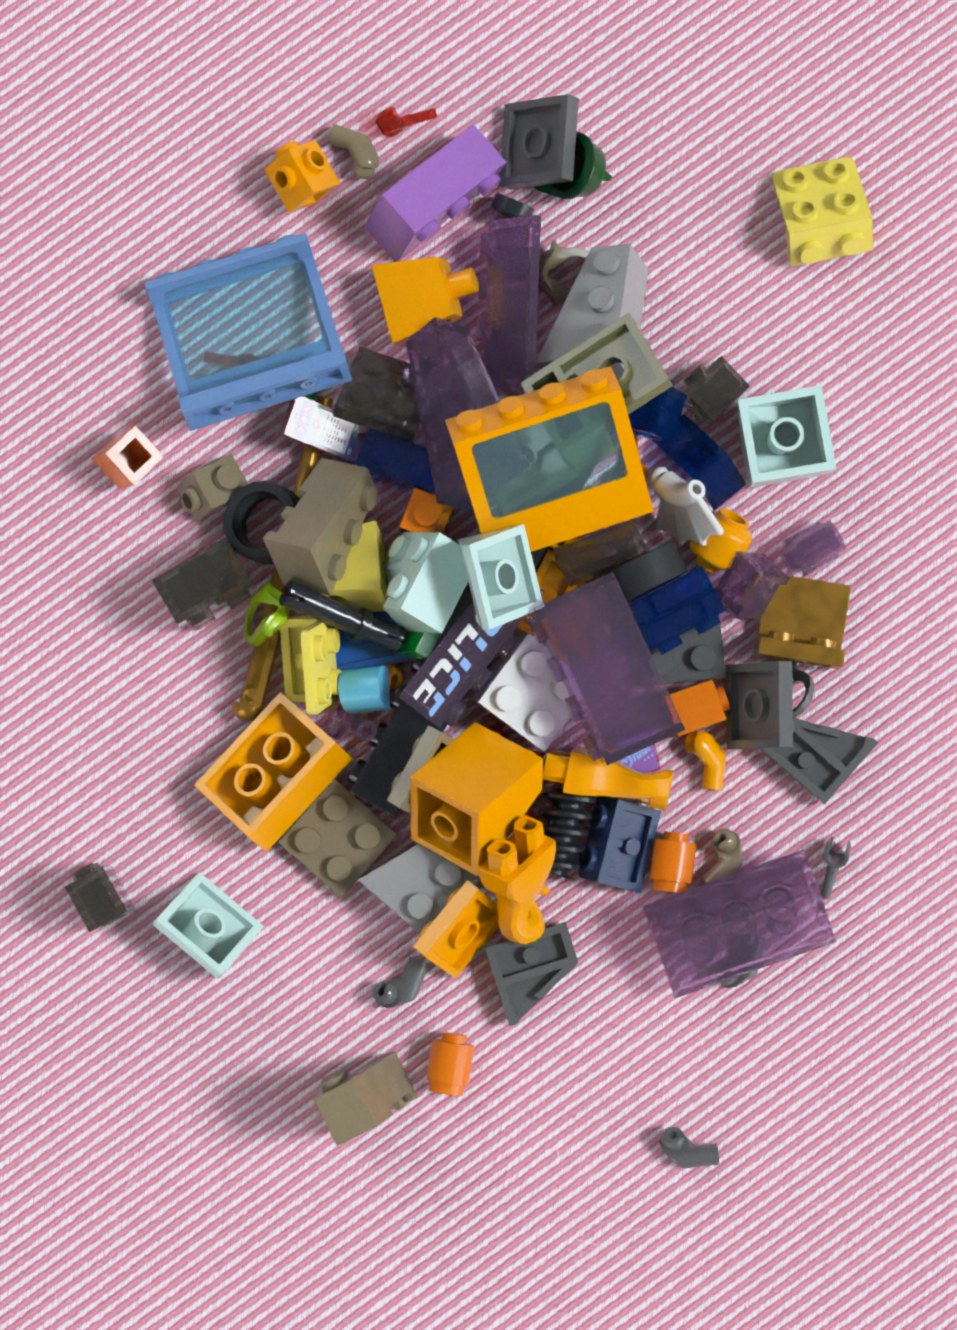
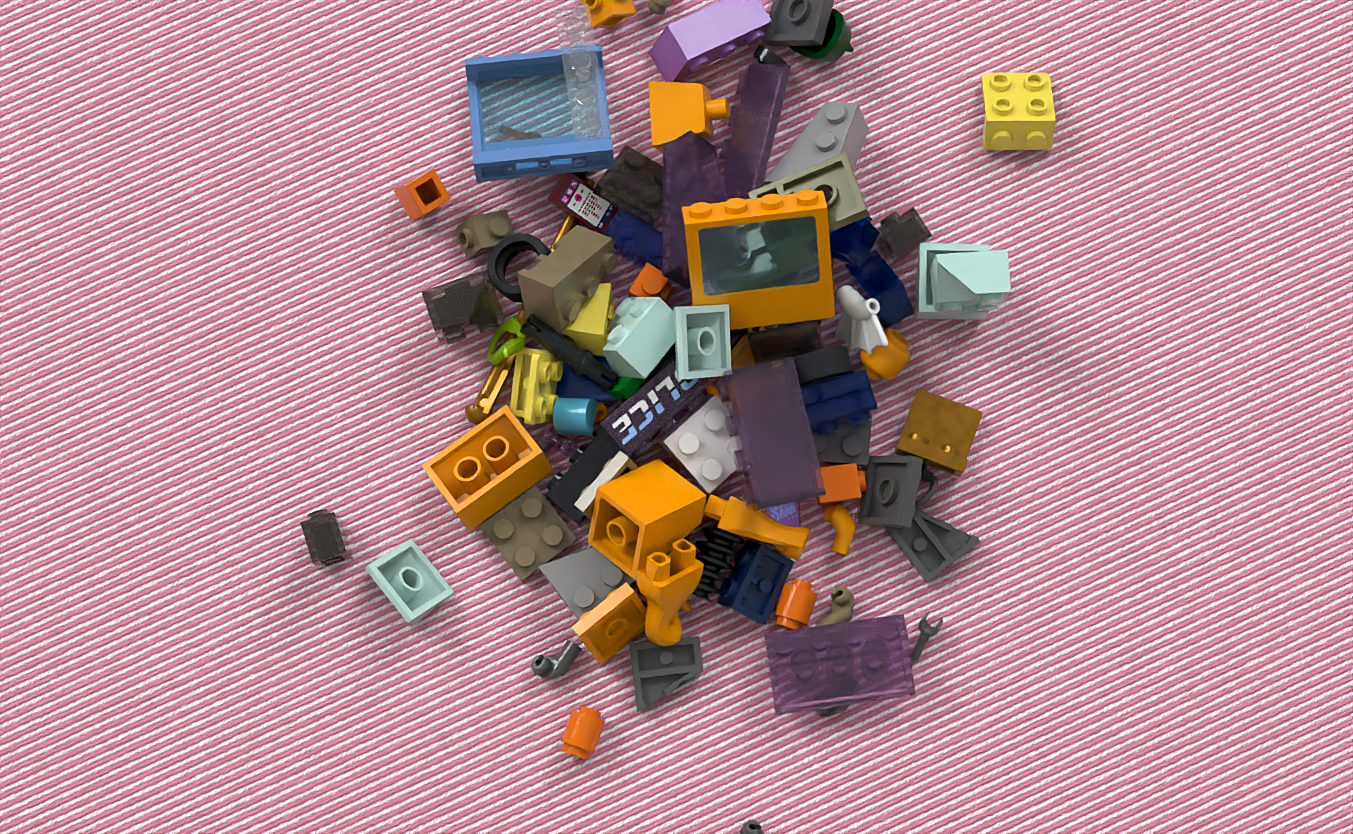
camera: 10 degrees right, 5 degrees down
(290, 274) = (582, 73): none -> clear plate
(364, 1097) = (506, 742): dark tan wedge -> none
(553, 258) = (795, 105): dark tan piece -> none
(749, 585) = (900, 394): clear purple brick -> none
(808, 436) = (970, 280): none -> light aqua slope
(812, 548) = (957, 375): clear purple brick -> none

